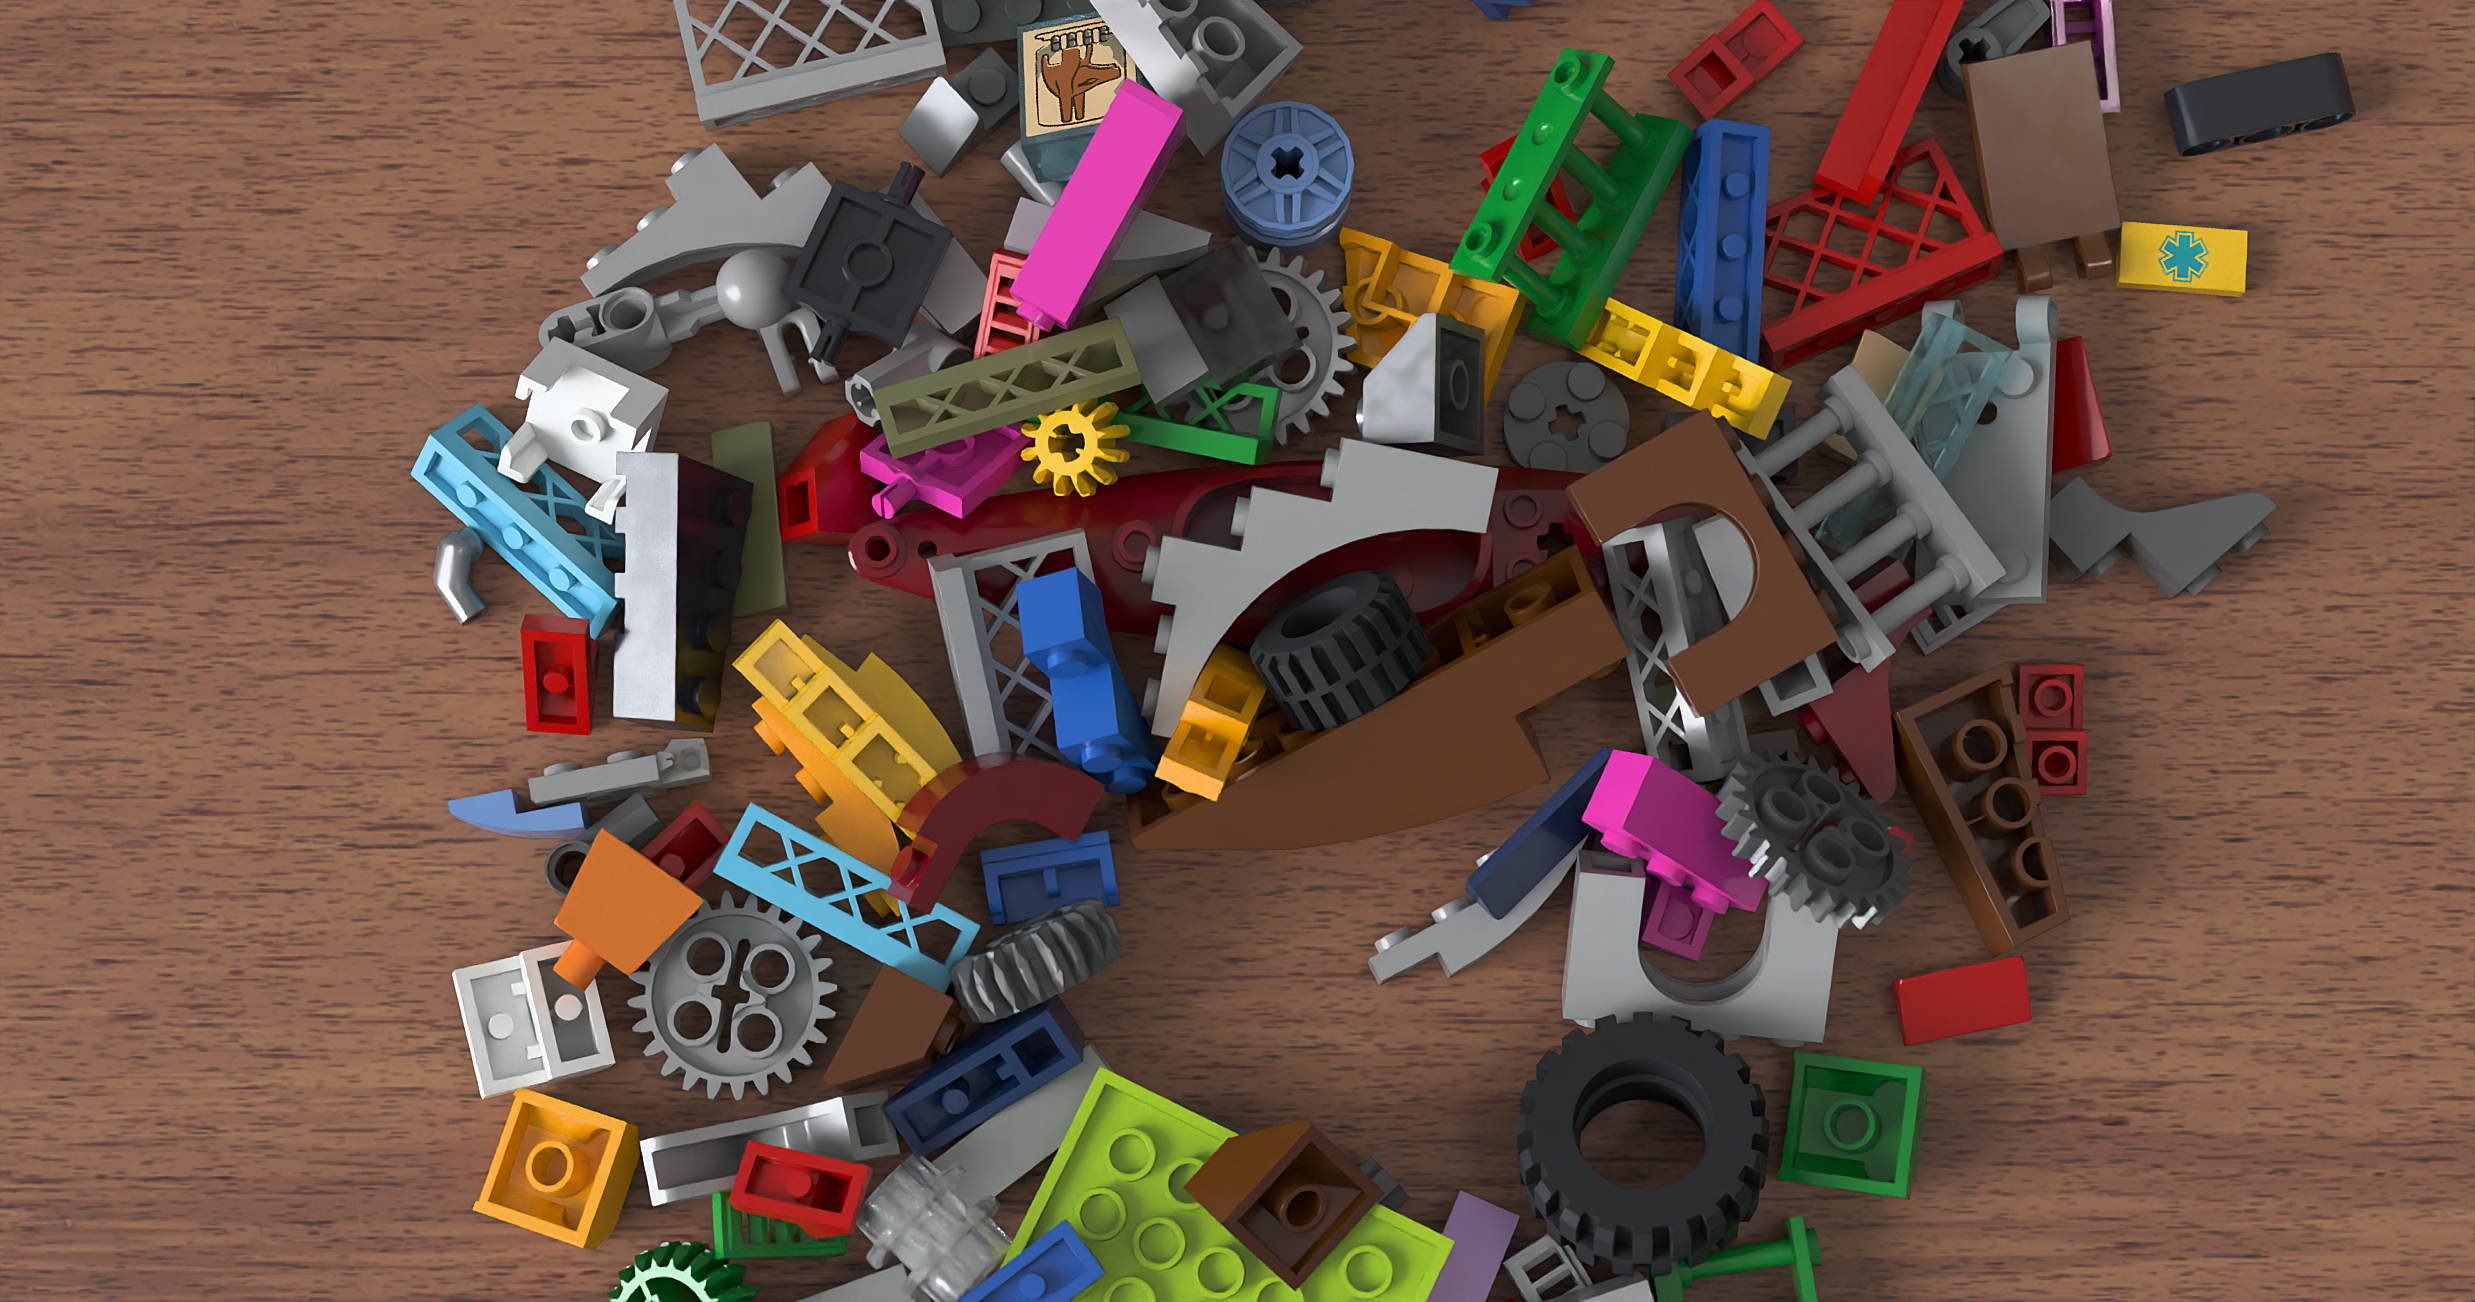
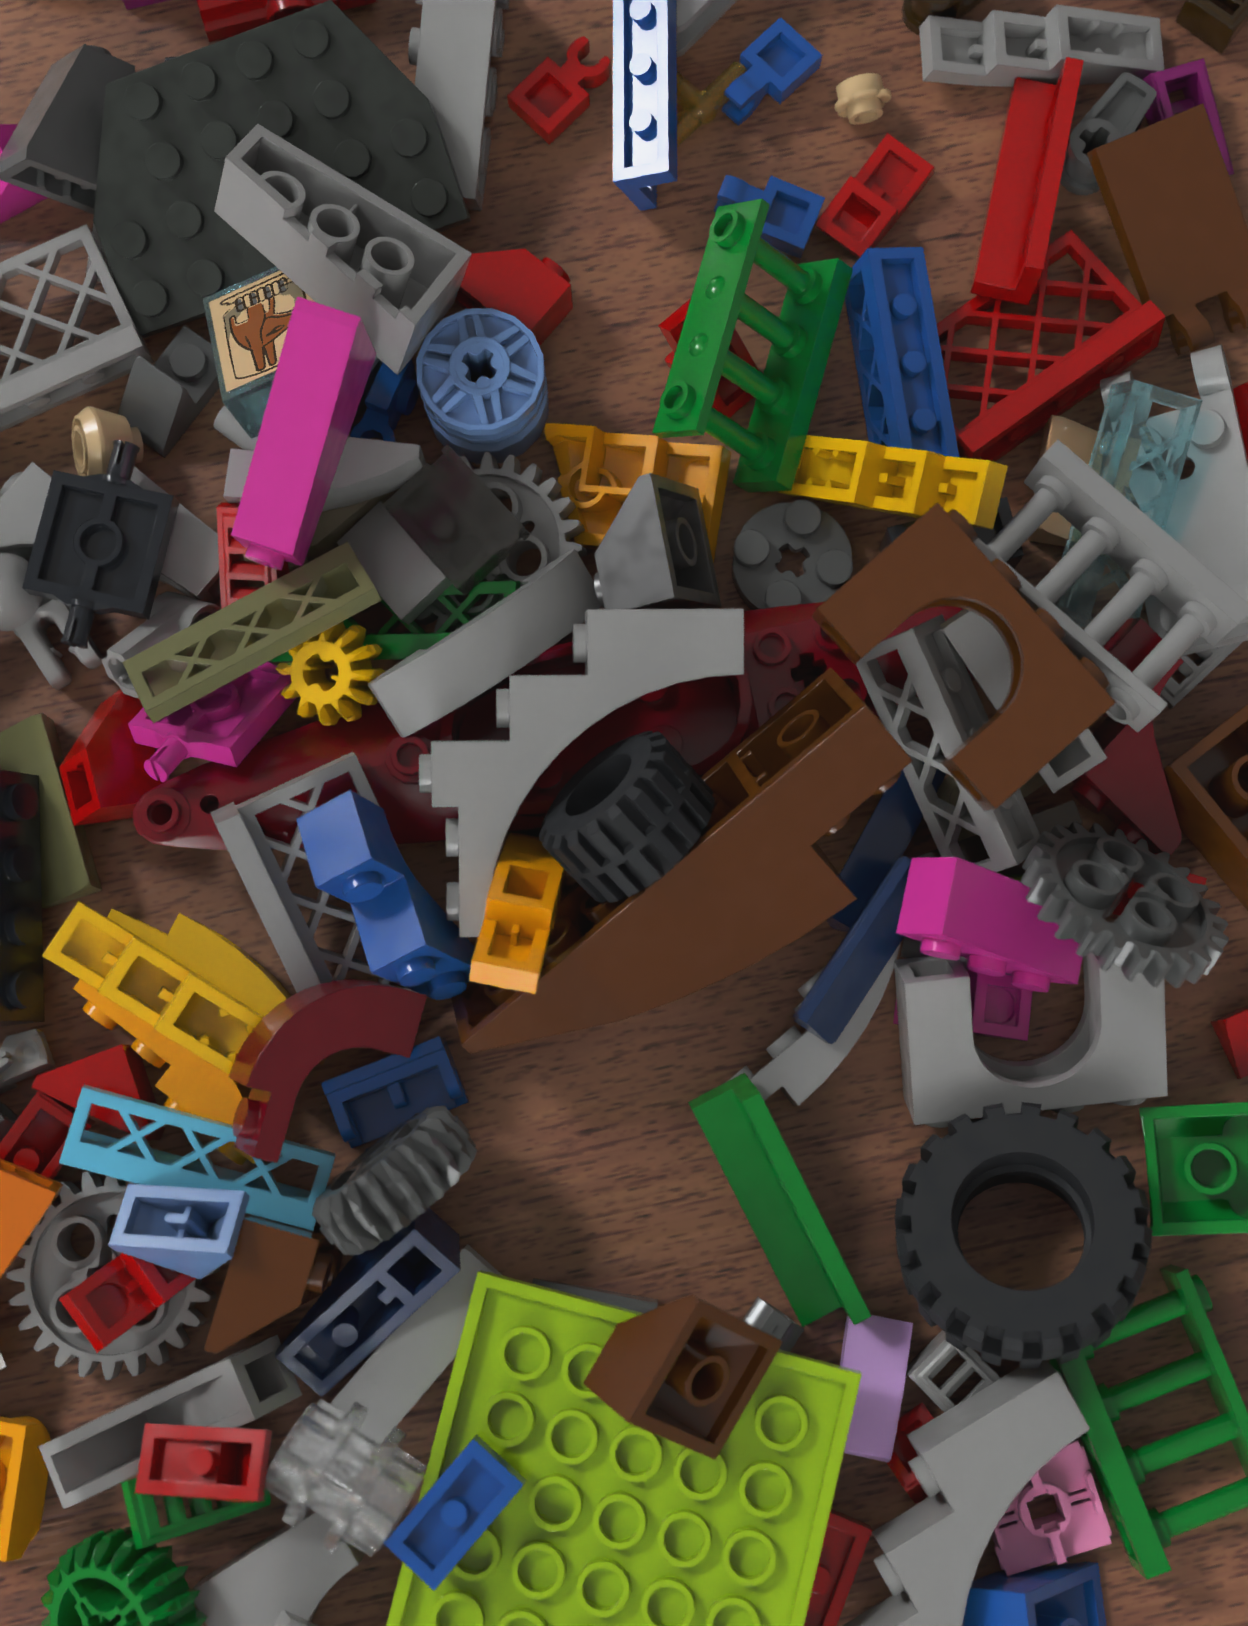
camera: 10 degrees left, 0 degrees up
(762, 1006) = (120, 1297): none -> red slope
(772, 792) = (112, 1070): none -> red slope
(819, 959) = (180, 1226): none -> medium blue slope
(877, 152) = (94, 436): none -> tan cone
(1182, 173) = (386, 402): none -> blue plate
(1239, 451) = (487, 647): none -> light grey slope
(1343, 83) = (520, 286): none -> red slope
(1408, 1064) = (777, 1202): none -> green fence
(1594, 726) = (880, 846): none -> dark blue slope
(1639, 52) = (790, 212): none -> blue plate

